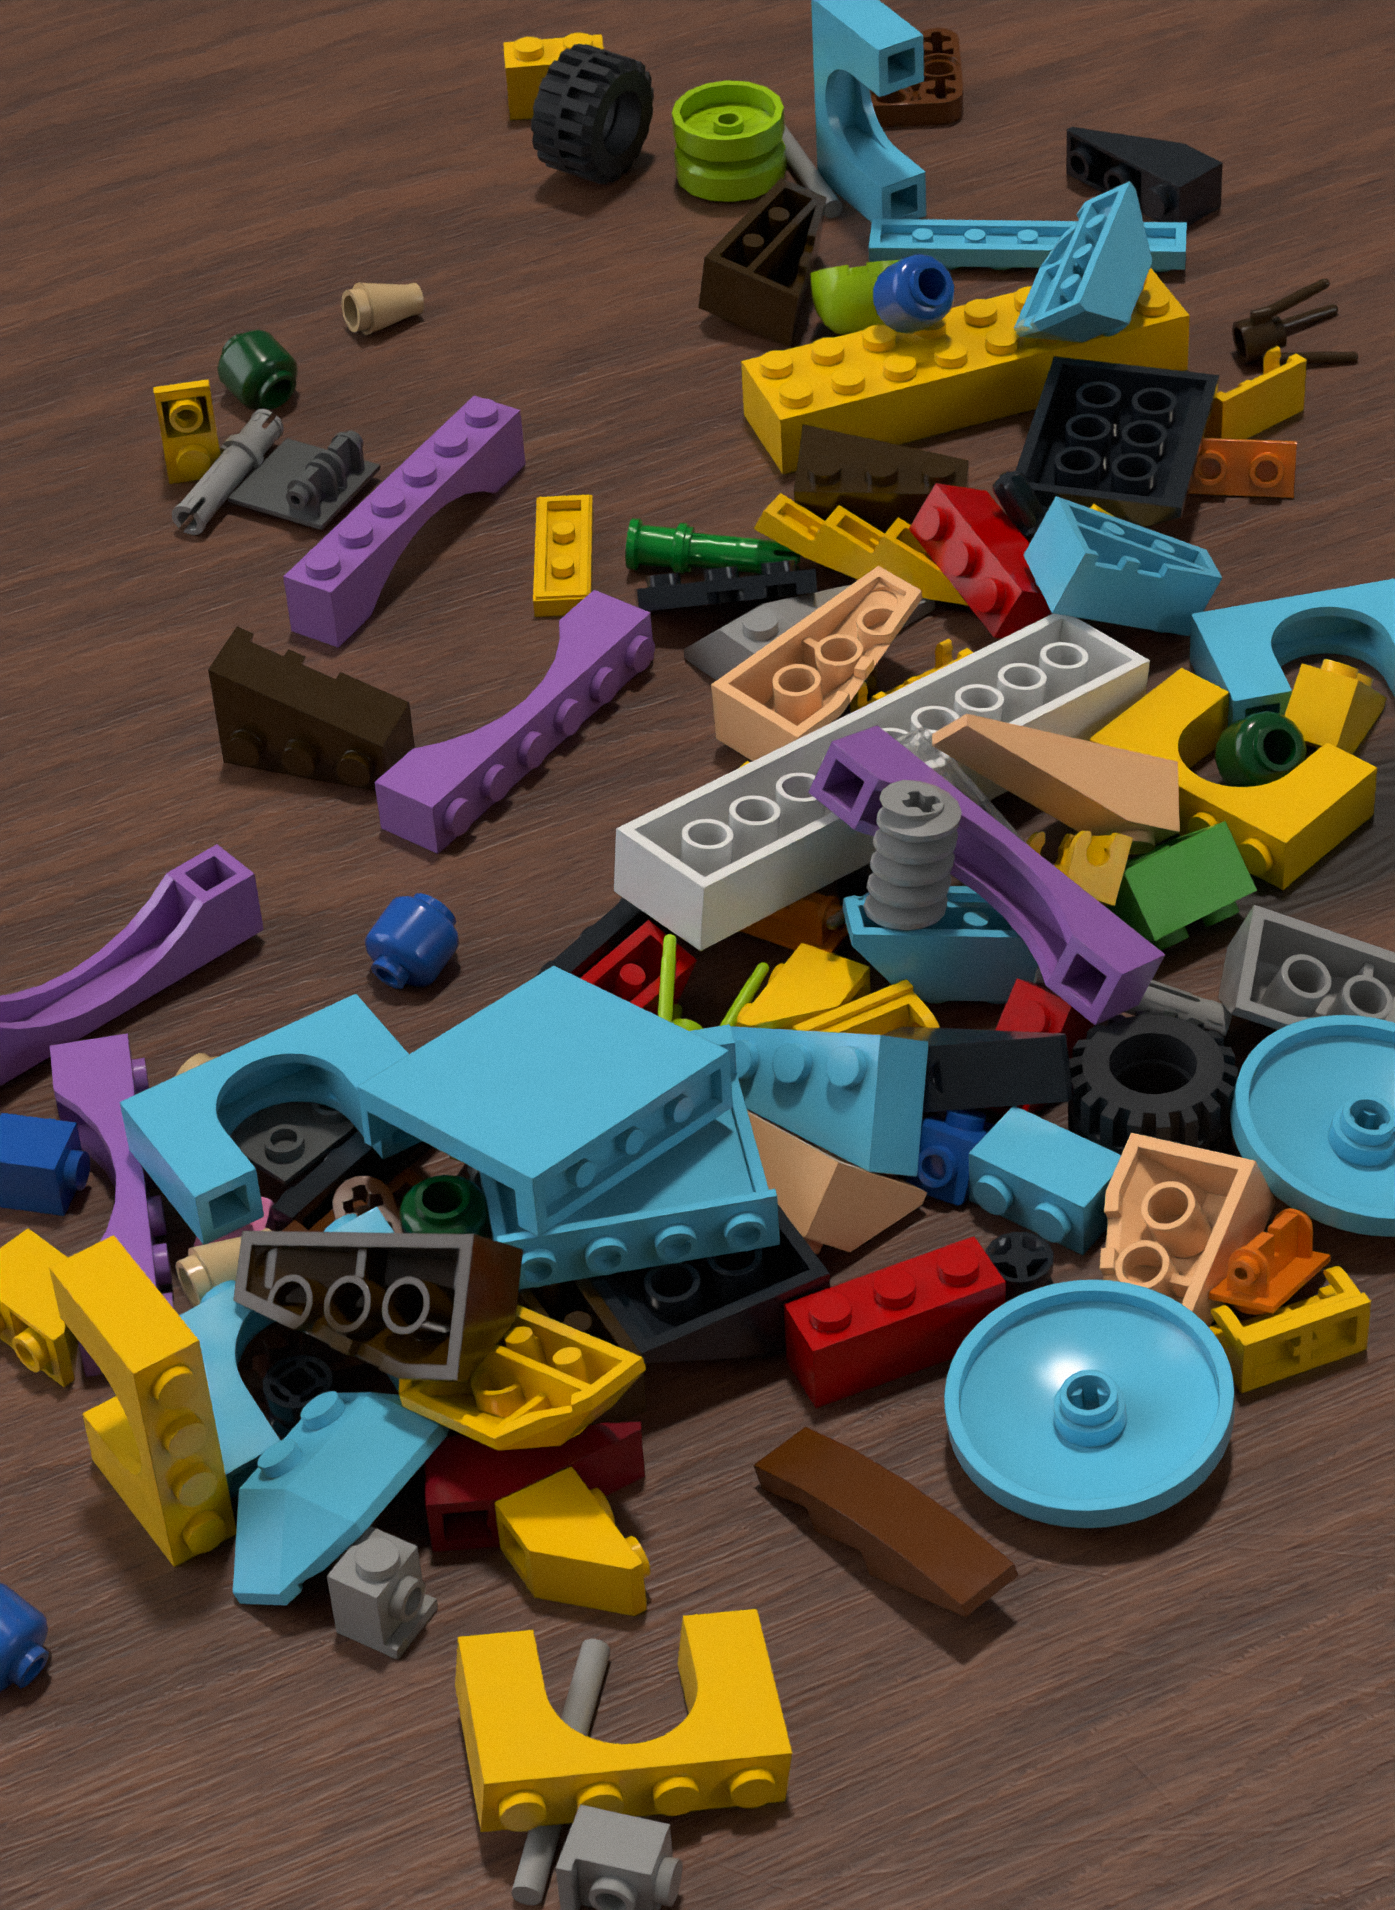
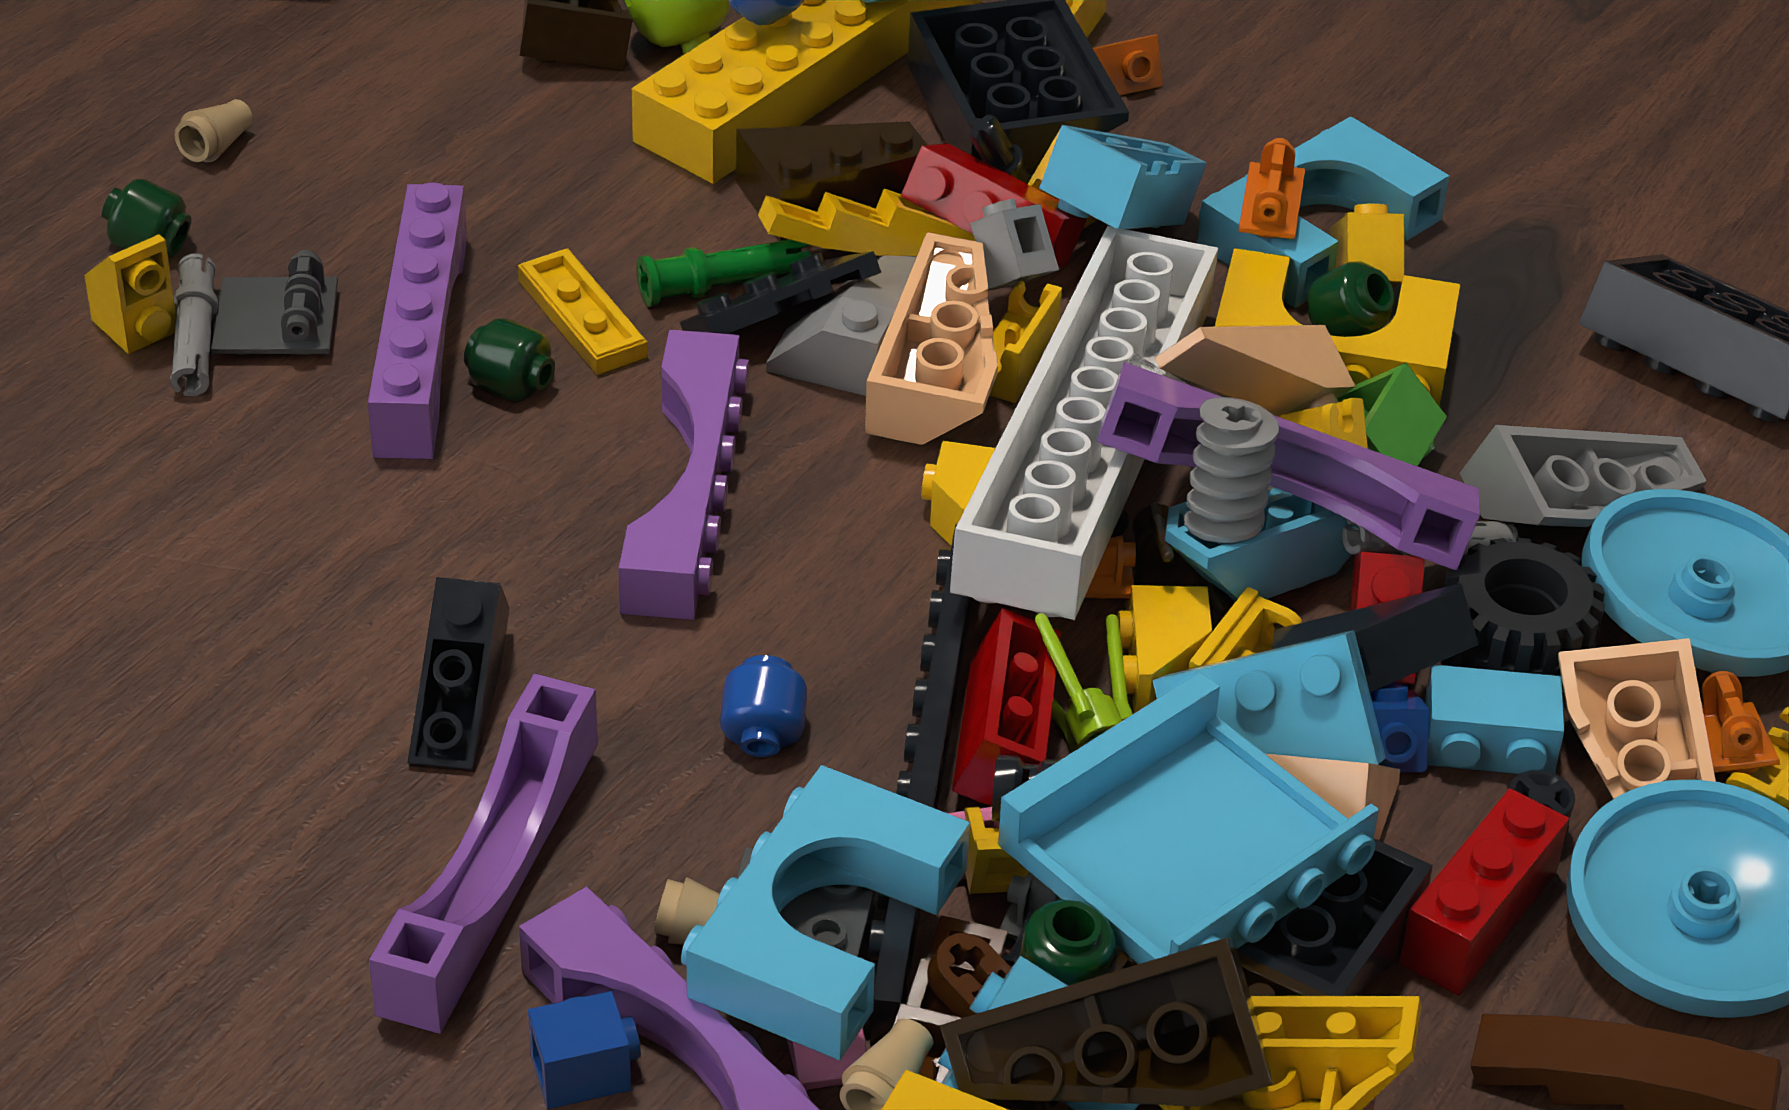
camera: 35 degrees left, 0 degrees up
(211, 803) = (458, 673): none -> black slope
(301, 721) = (494, 529): dark brown wedge -> none
(453, 576) = (509, 360): none -> dark green head
(553, 1093) = (1103, 785): medium azure panel -> none
(973, 599) = (1014, 244): none -> light grey brick
(1253, 624) = (1273, 193): none -> orange hinge

